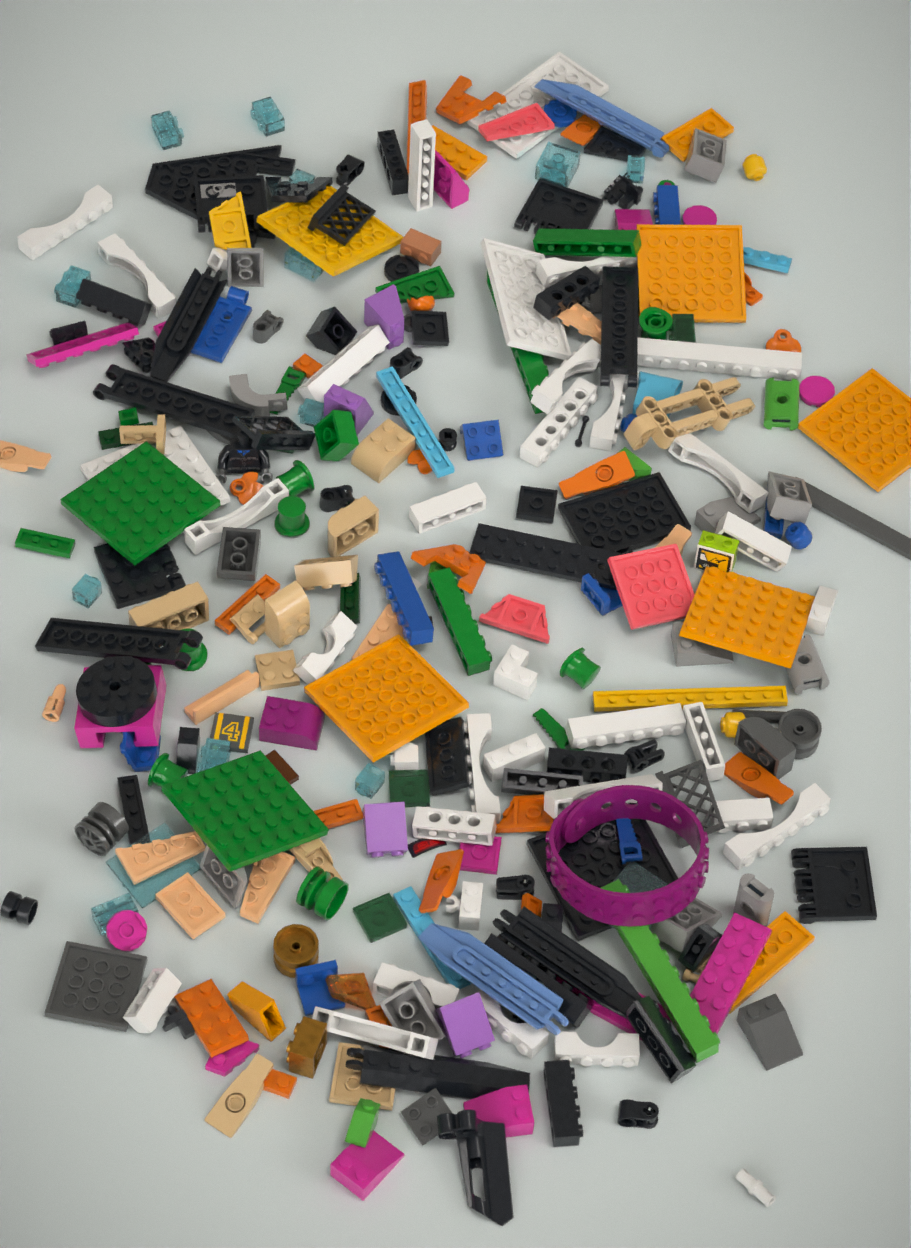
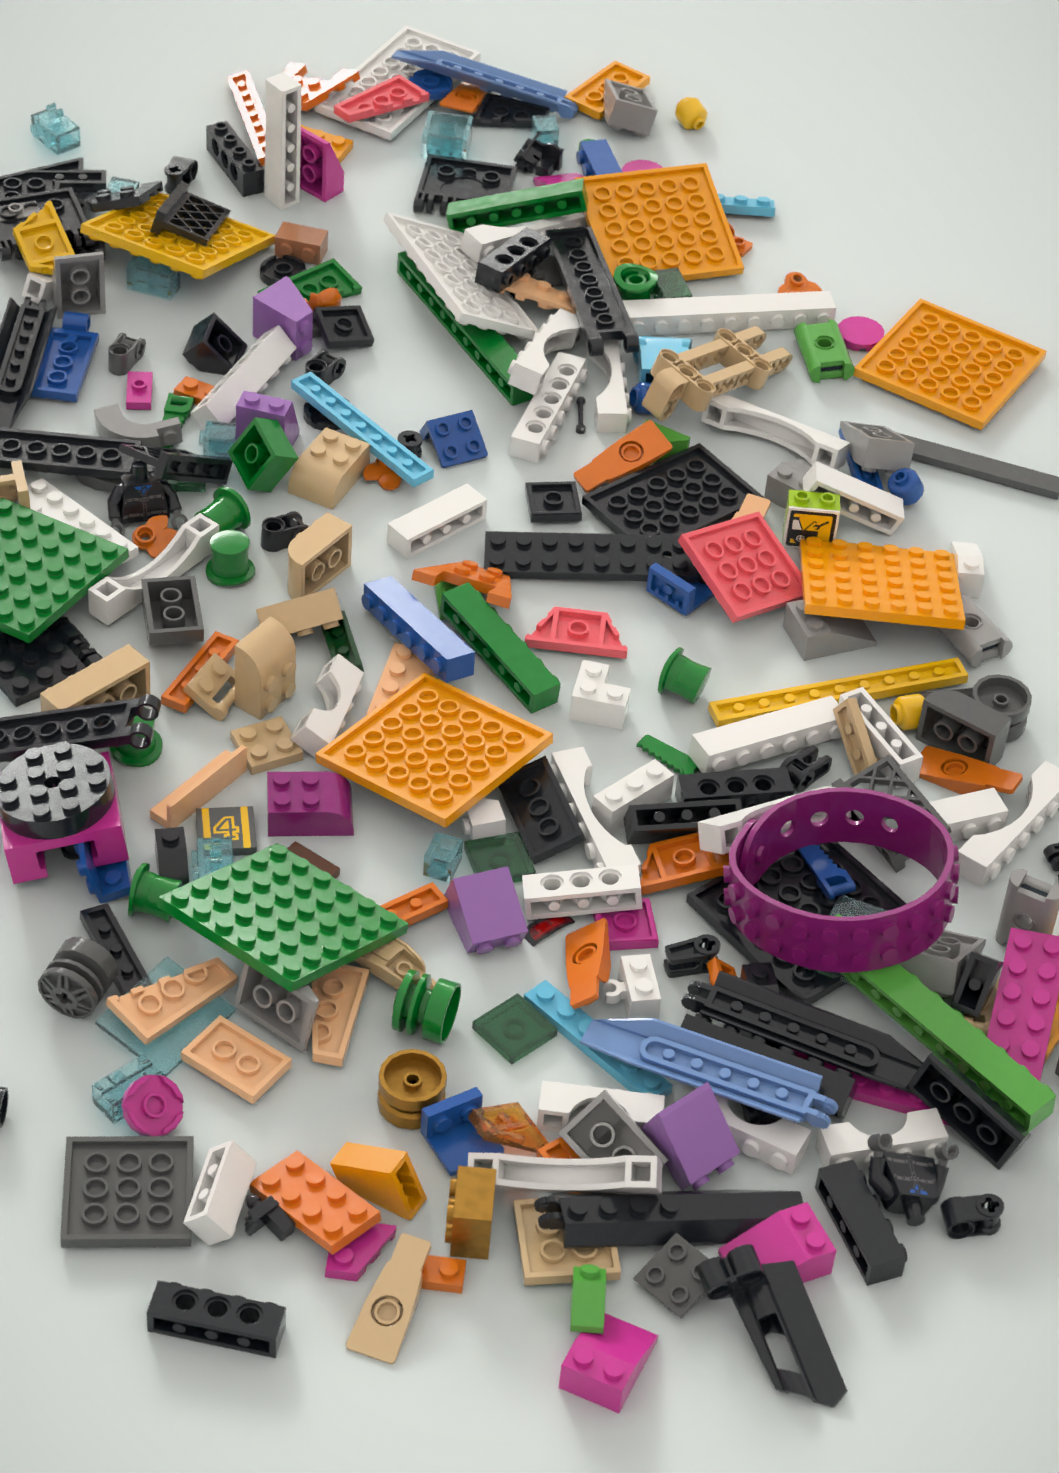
camera: 15 degrees left, 10 degrees down
(133, 1095) = (199, 1323): none -> black brick
(269, 359) = (139, 390): none -> dark pink plate
(601, 1082) = (907, 1181): none -> black torso
(684, 739) = (854, 735): none -> tan hinge

